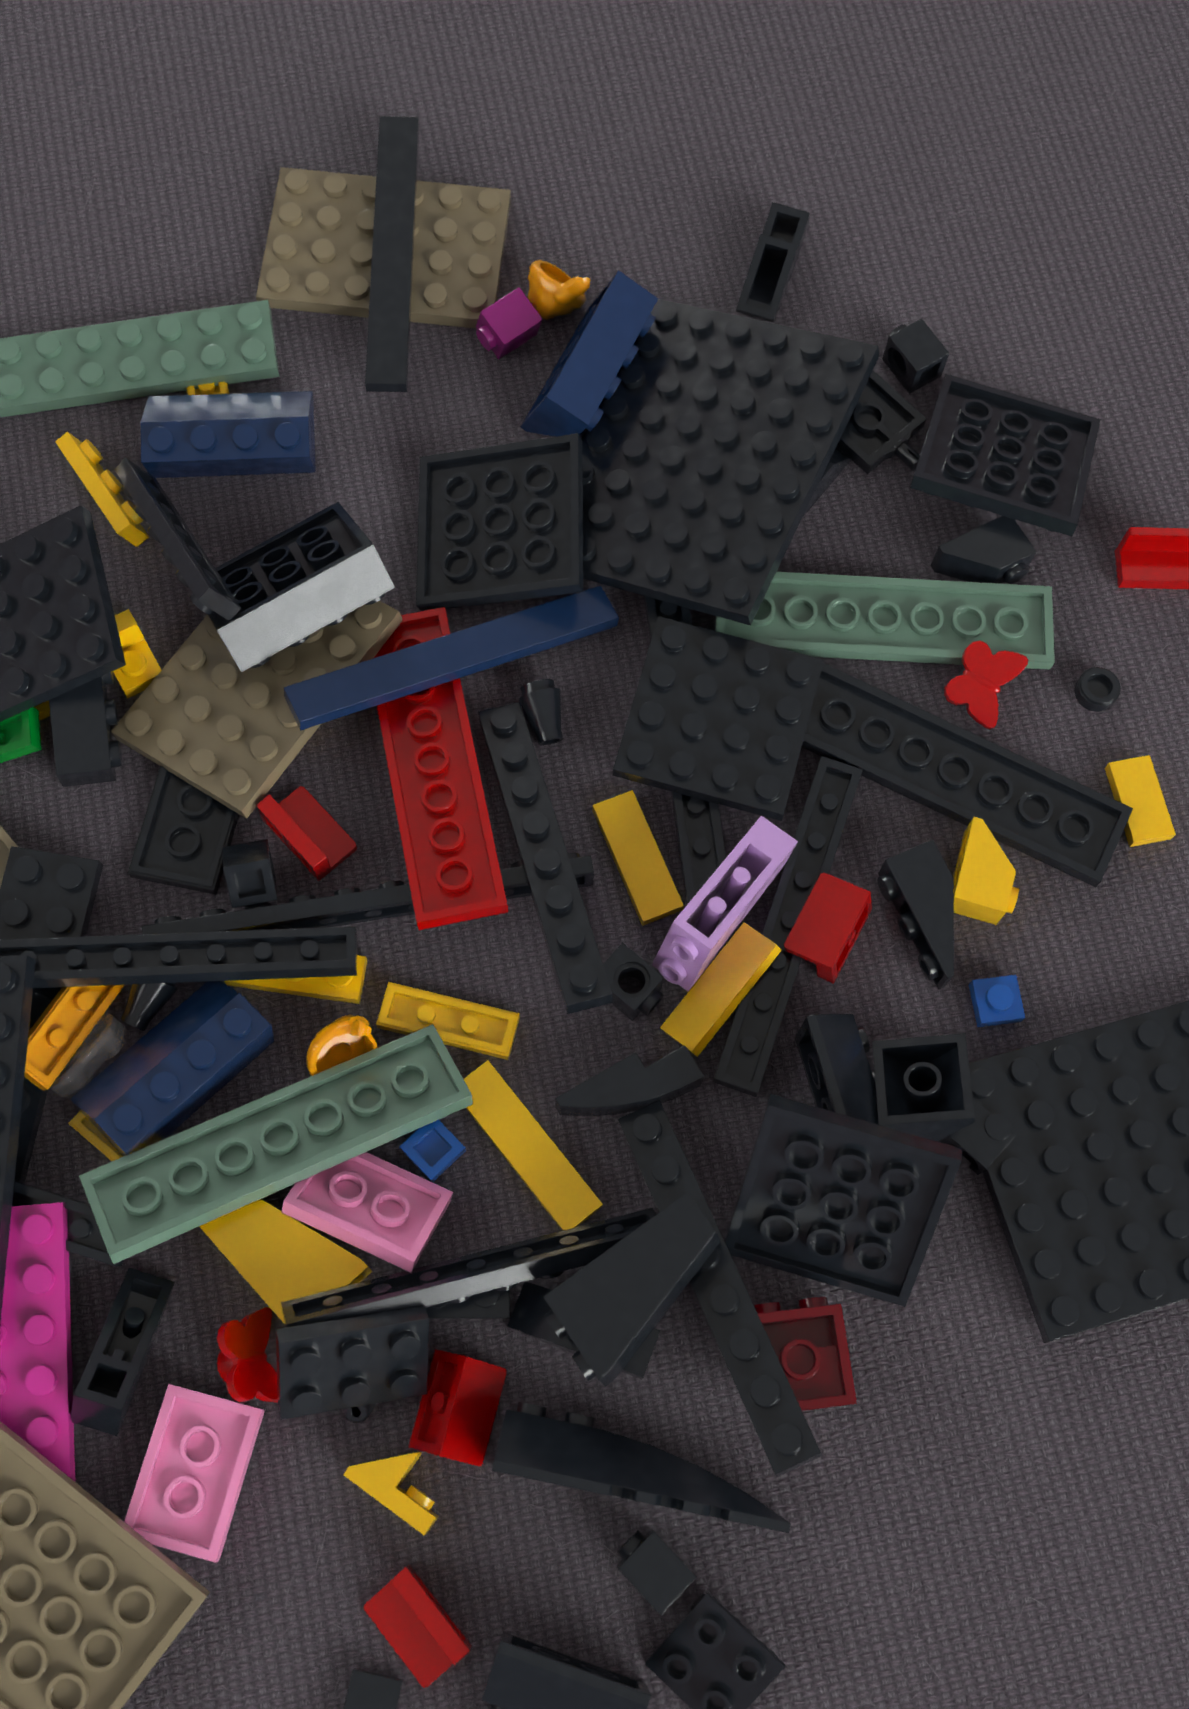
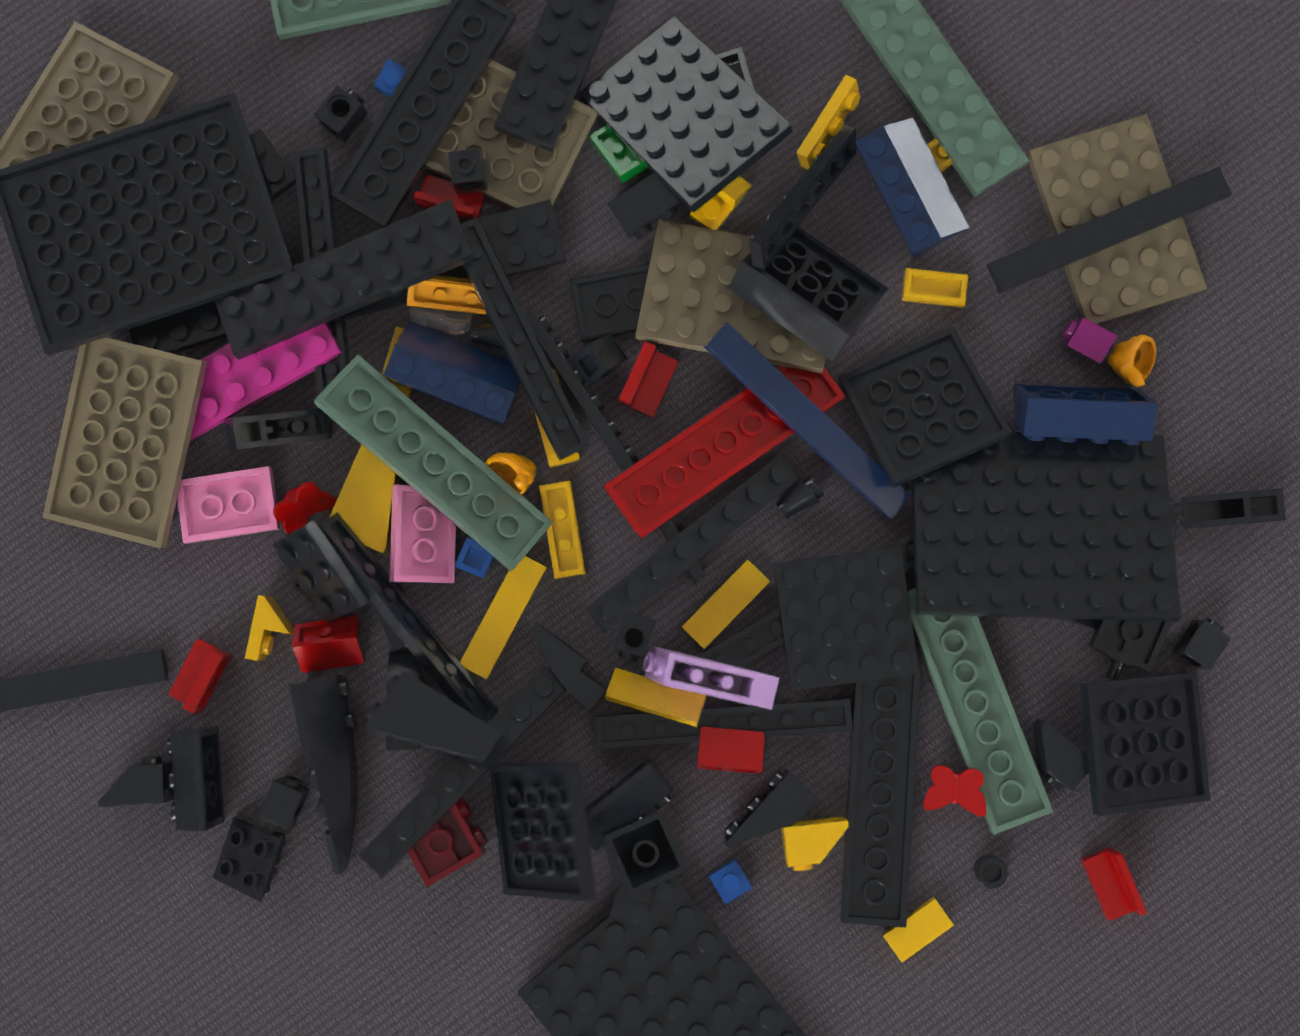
camera: 70 degrees right, 15 degrees up
(363, 461) = (934, 287): none -> yellow tile

